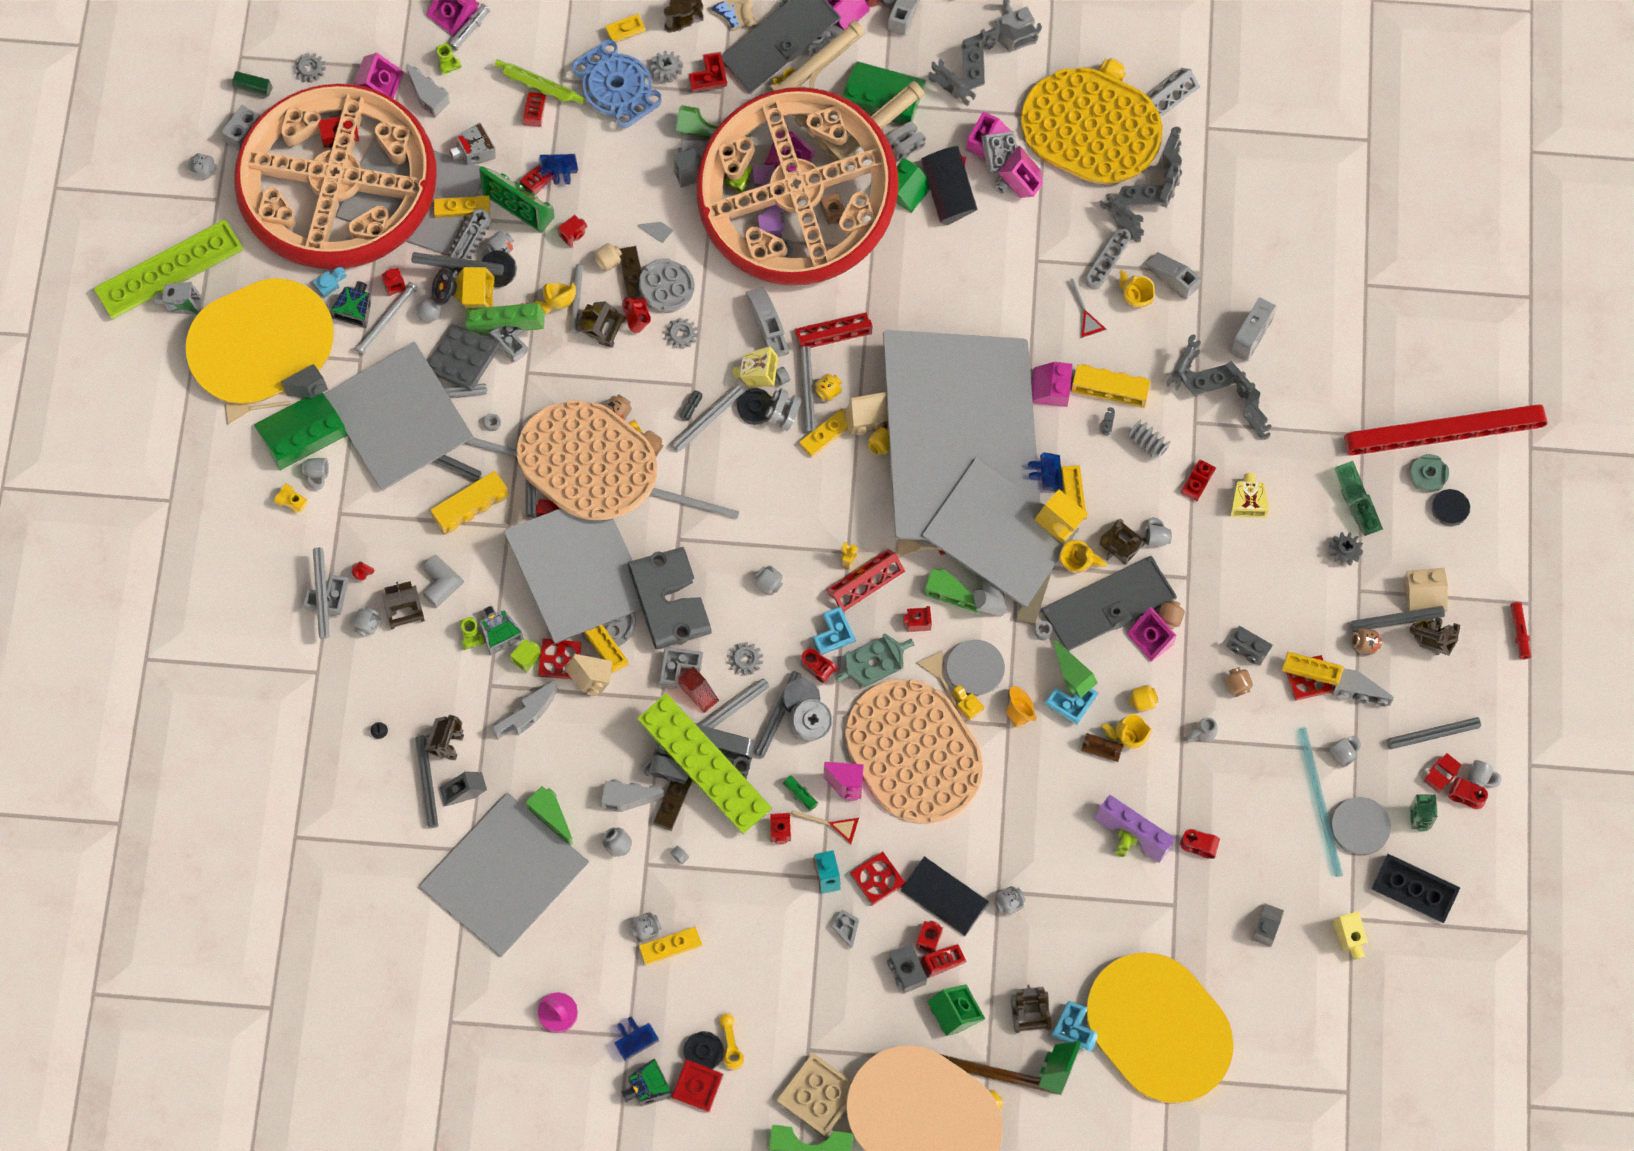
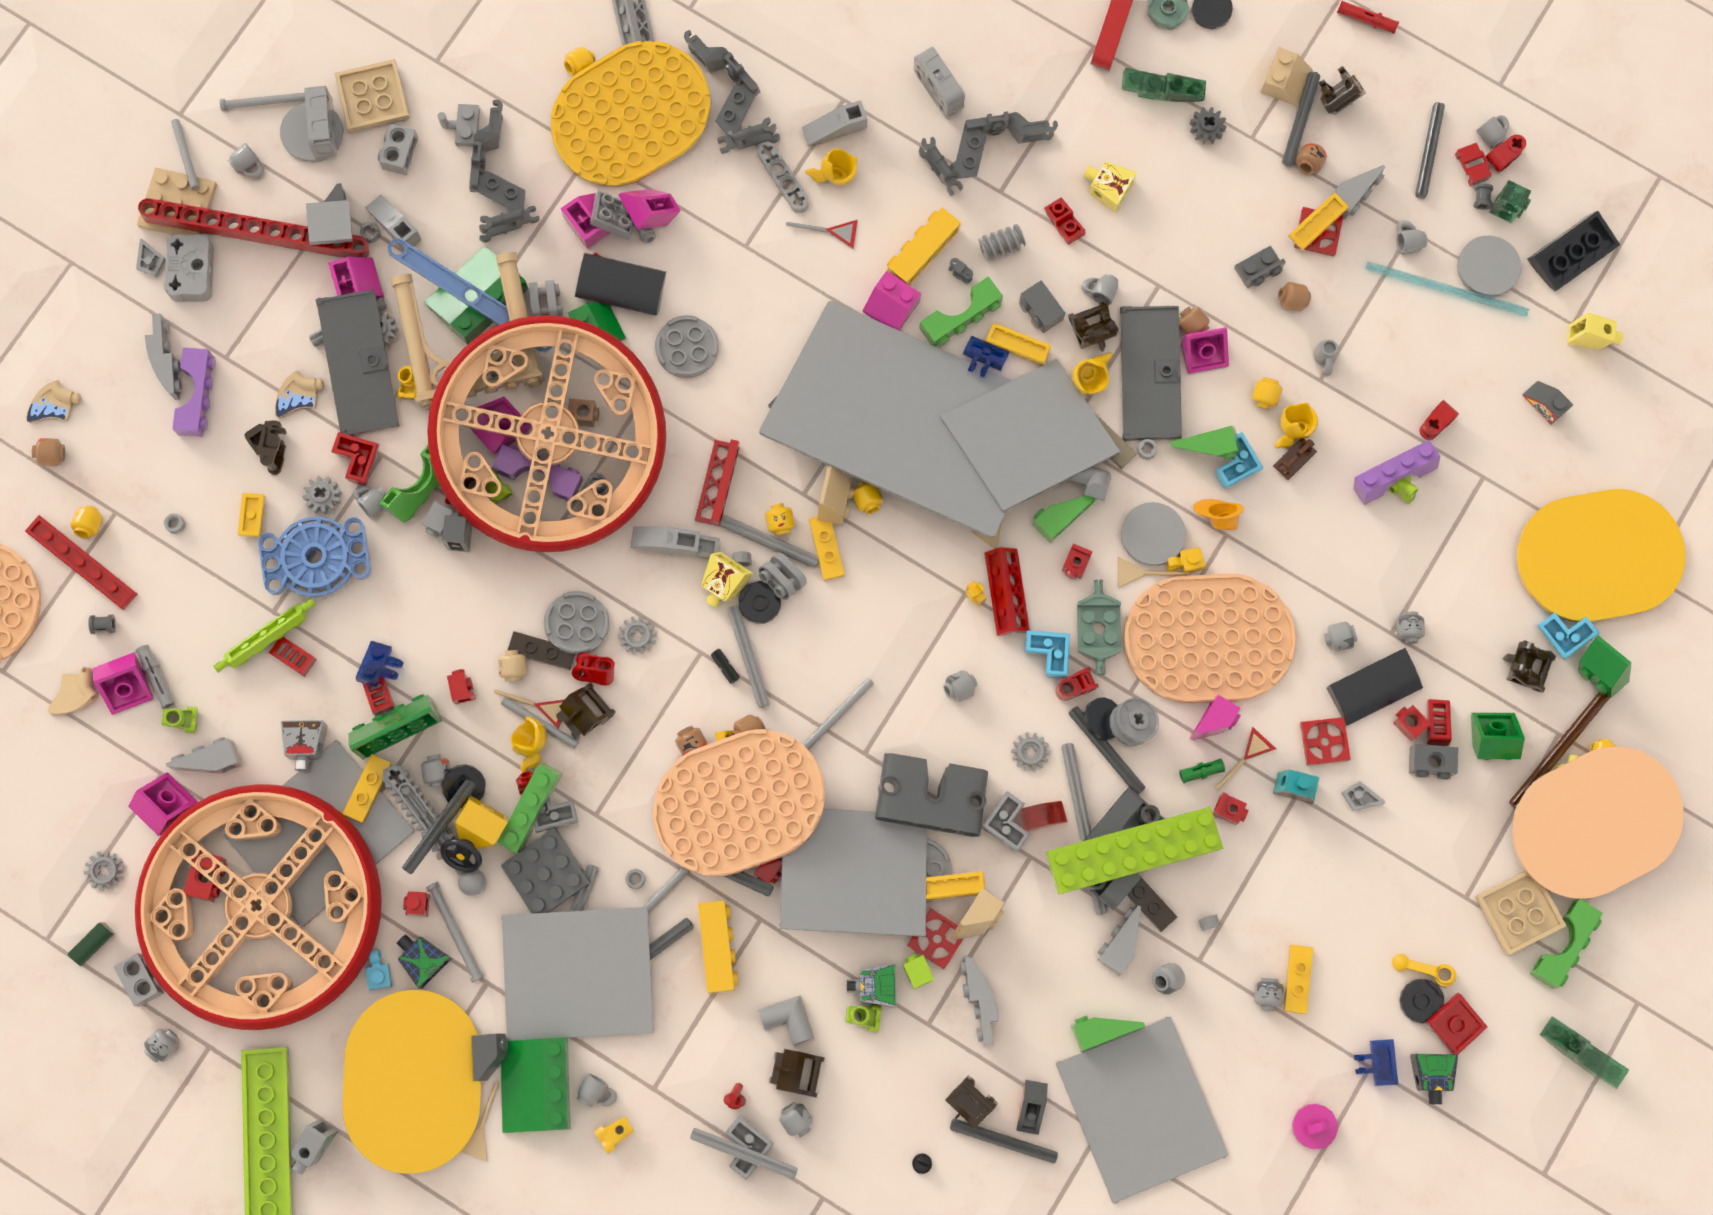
camera: 65 degrees left, 10 degrees up
(589, 297) = (549, 708): none -> tan piece
(657, 230) = (505, 600): light grey sticker -> none
(681, 97) = (370, 501): none -> light grey piece
(875, 60) = (452, 283): none -> medium blue beam
(929, 257) = (686, 346): none -> light grey tile
(971, 848) = (1340, 636): none -> light grey head
(1061, 516) = (1045, 368): yellow piece -> none
(1094, 449) = (940, 327): none -> bright green arch
(1114, 495) = (1041, 307): none -> dark grey brick
(1423, 788) = (1483, 196): none -> dark grey bush

